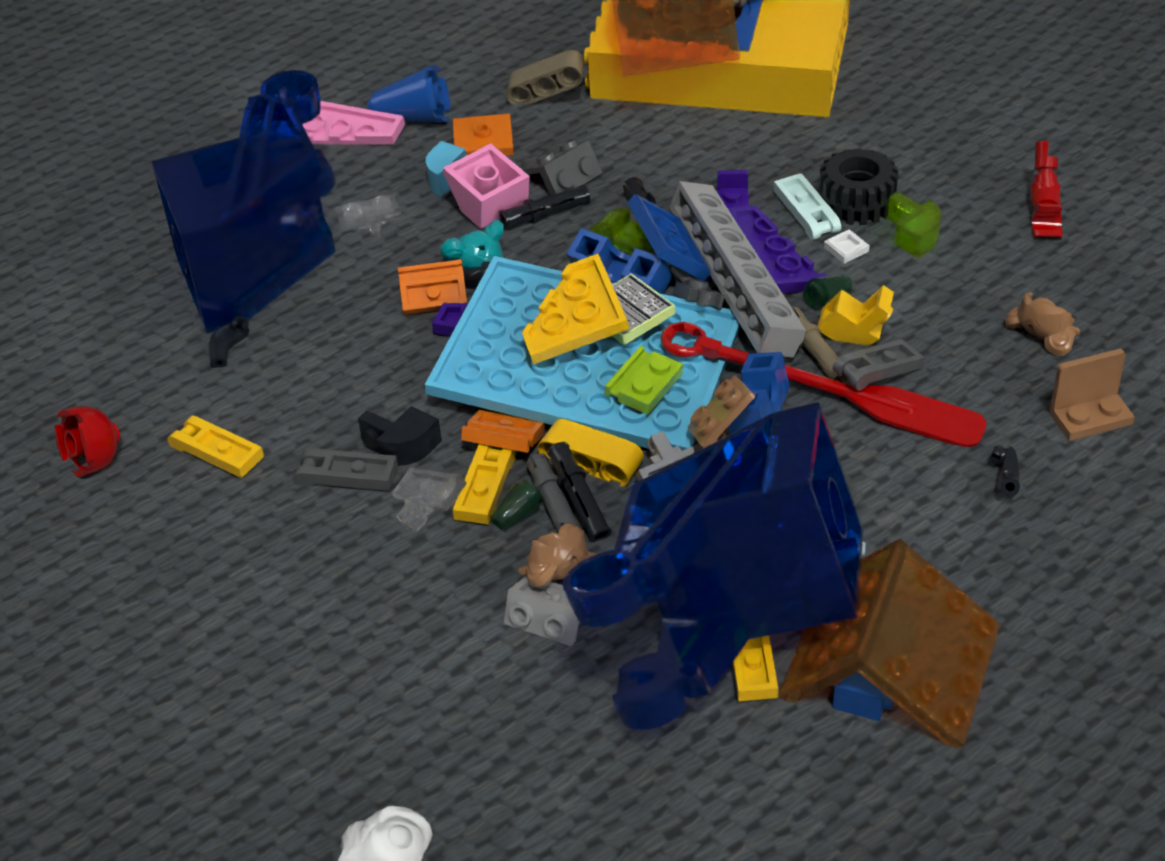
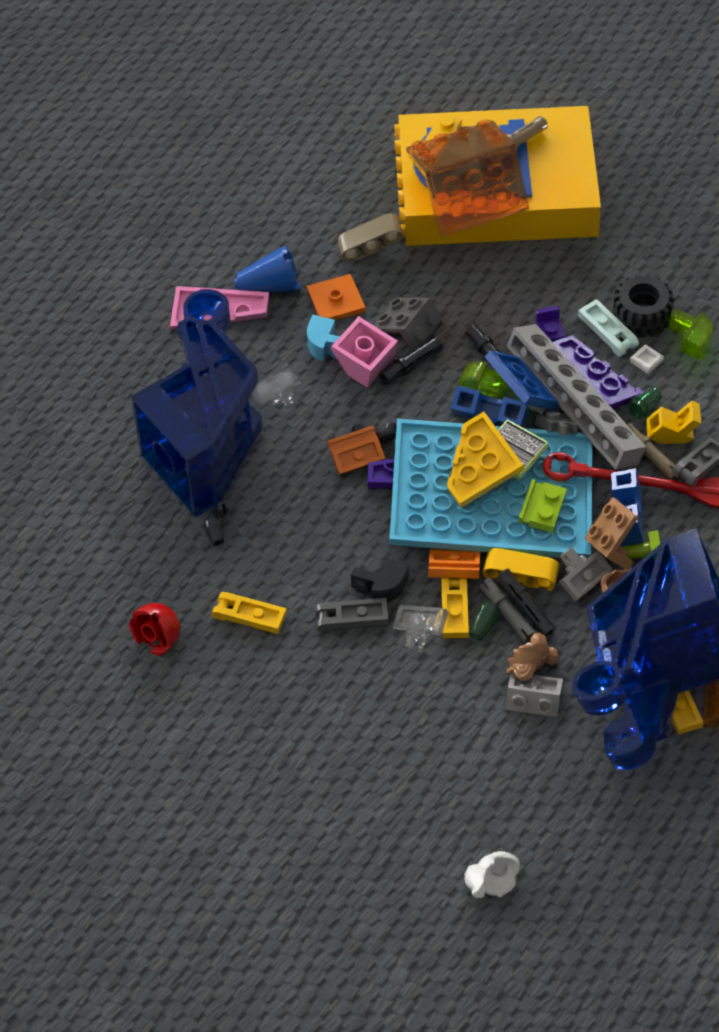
camera: 15 degrees left, 10 degrees up
(468, 246) = (369, 412): teal hair -> none

